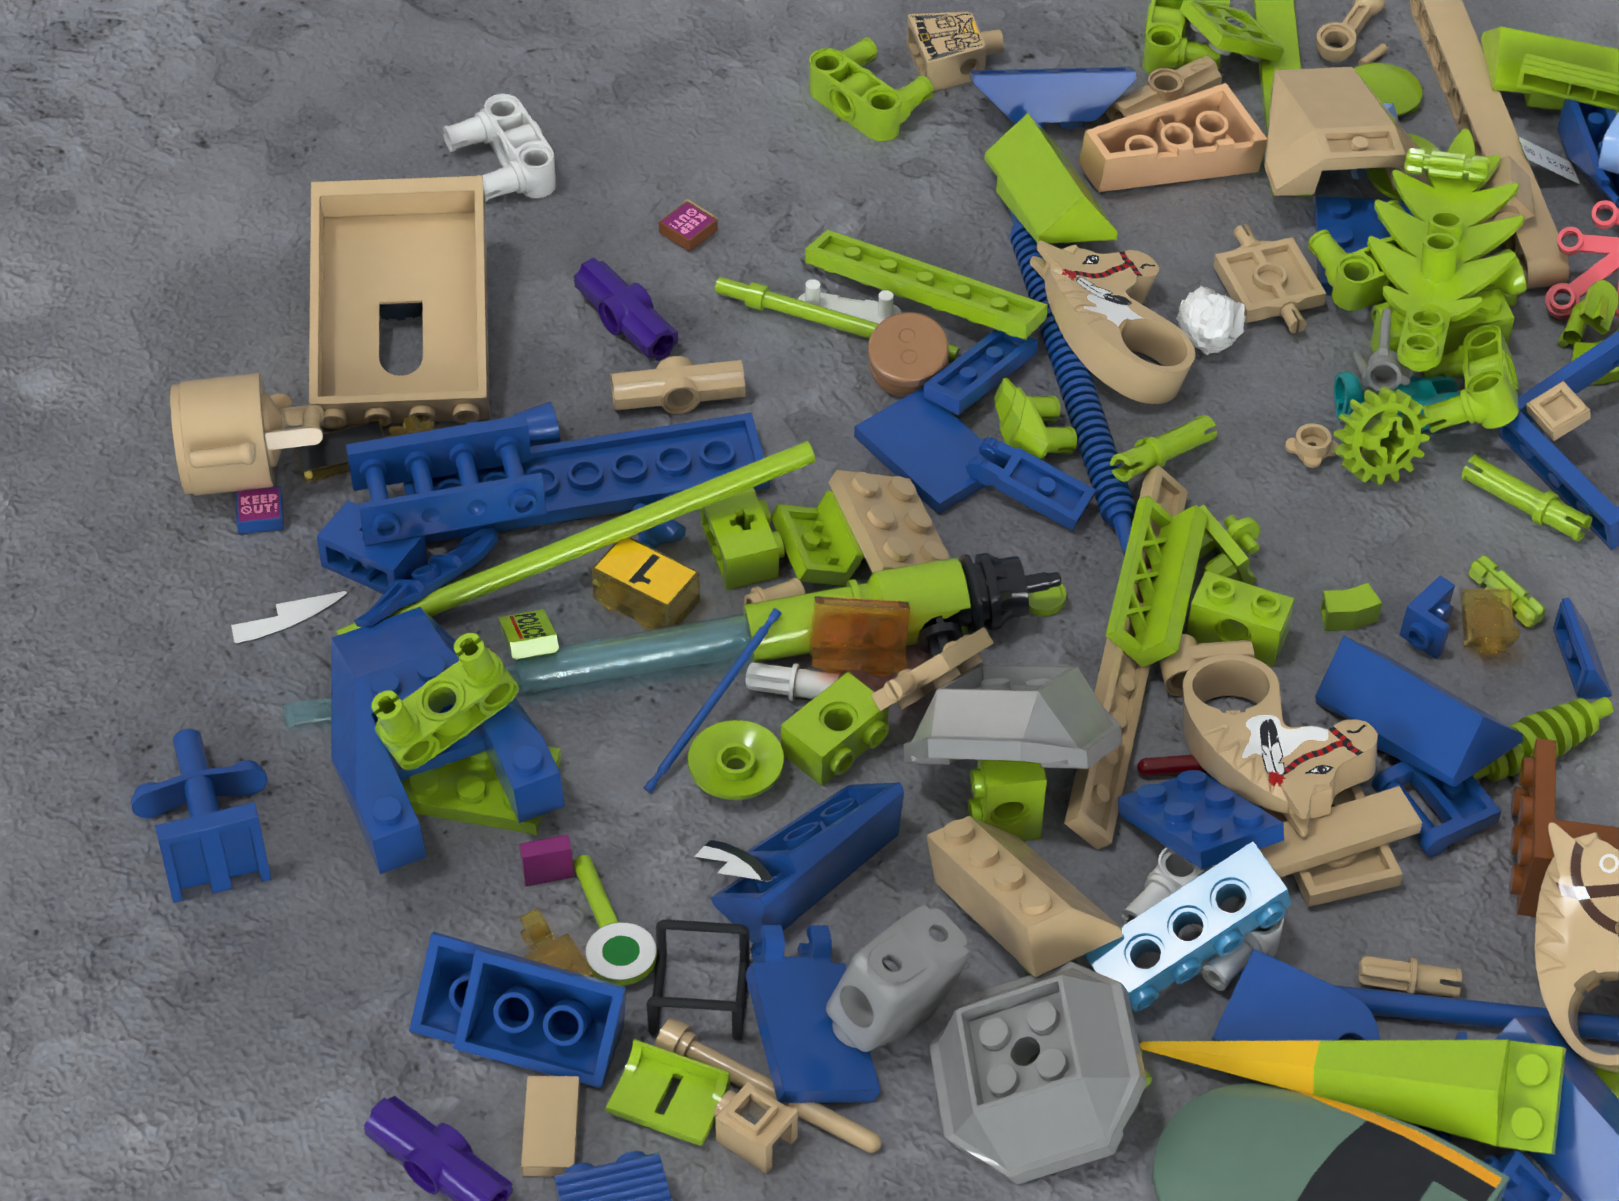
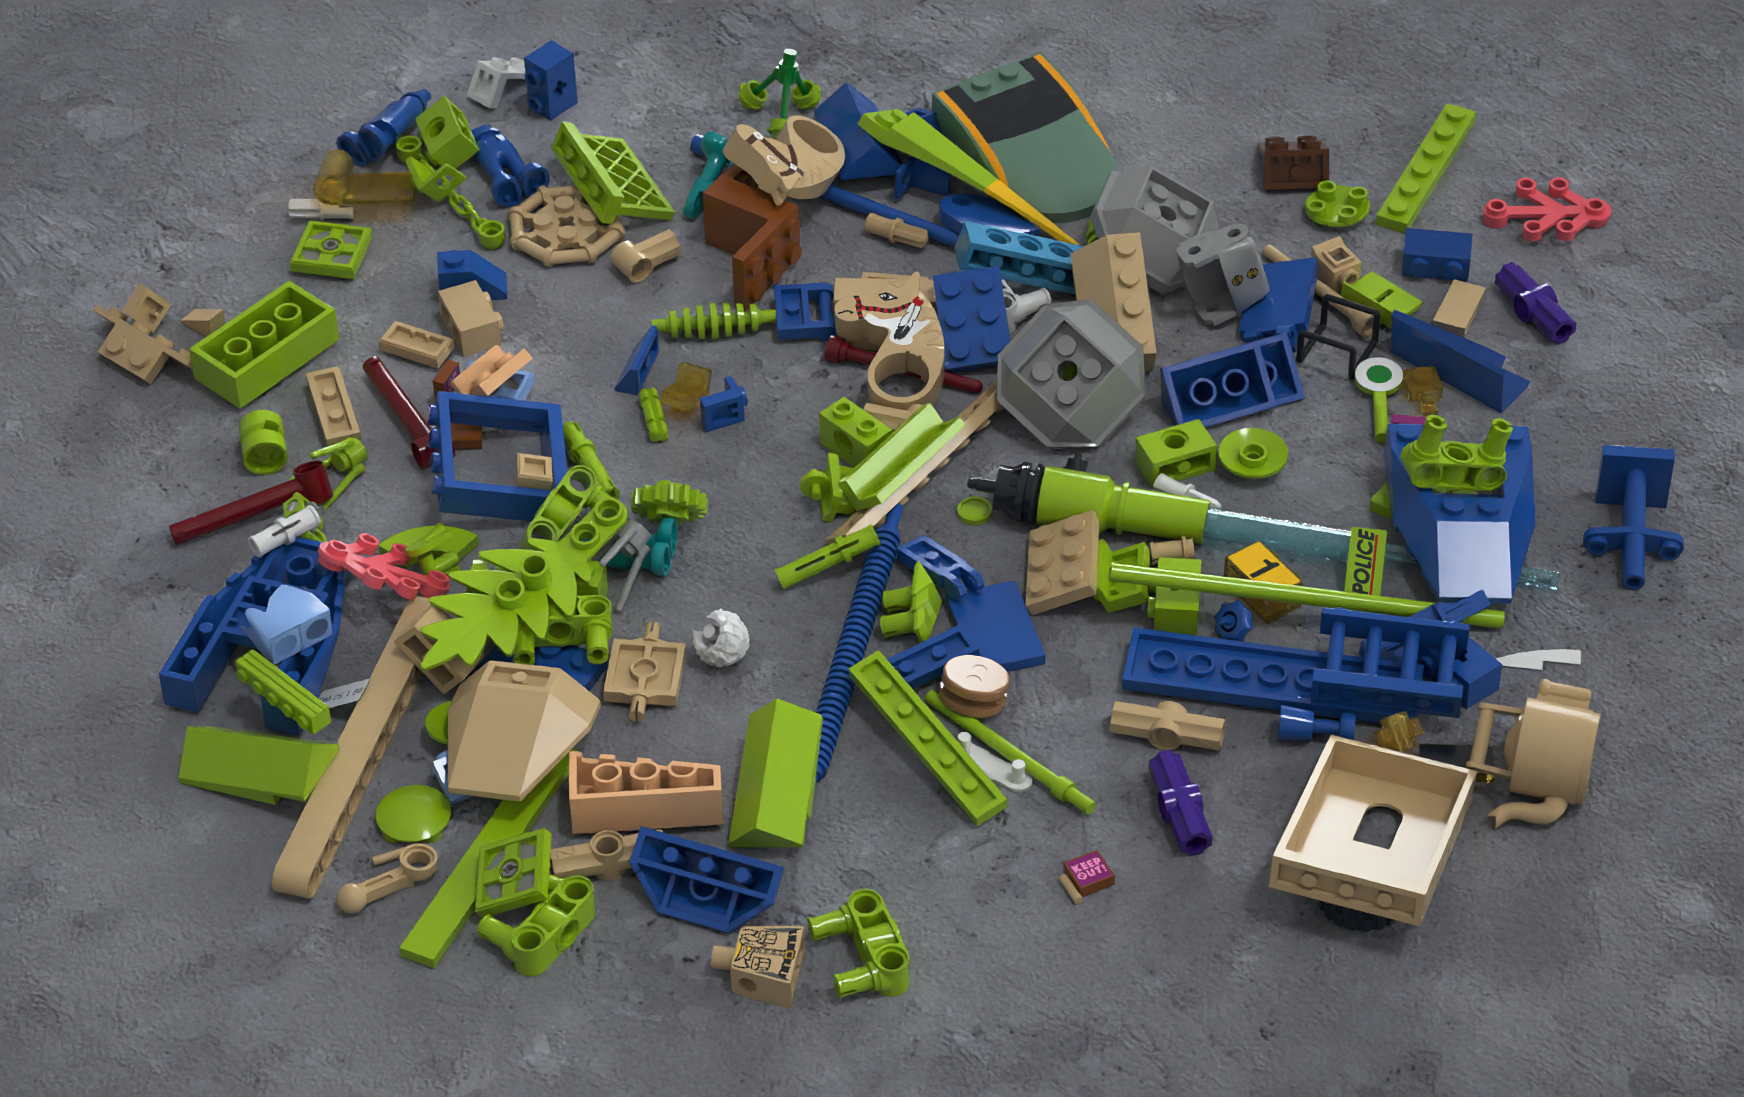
camera: 155 degrees left, 5 degrees down
(517, 142) = (1206, 984): white piece -> none
(712, 700) = (1251, 483): blue piece -> none
(738, 861) = (1283, 388): sticker -> none
(859, 635) = (1138, 470): clear orange bracket -> none
(934, 673) = (1101, 425): tan plate -> none
(1103, 320) = (808, 657): tan animal -> none
(1312, 444) = (709, 544): tan plate -> none
(1349, 608) = (771, 433): lime piece -> none
(1413, 714) = (784, 341): blue slope -> none
(1447, 165) = (471, 629): lime axle -> none

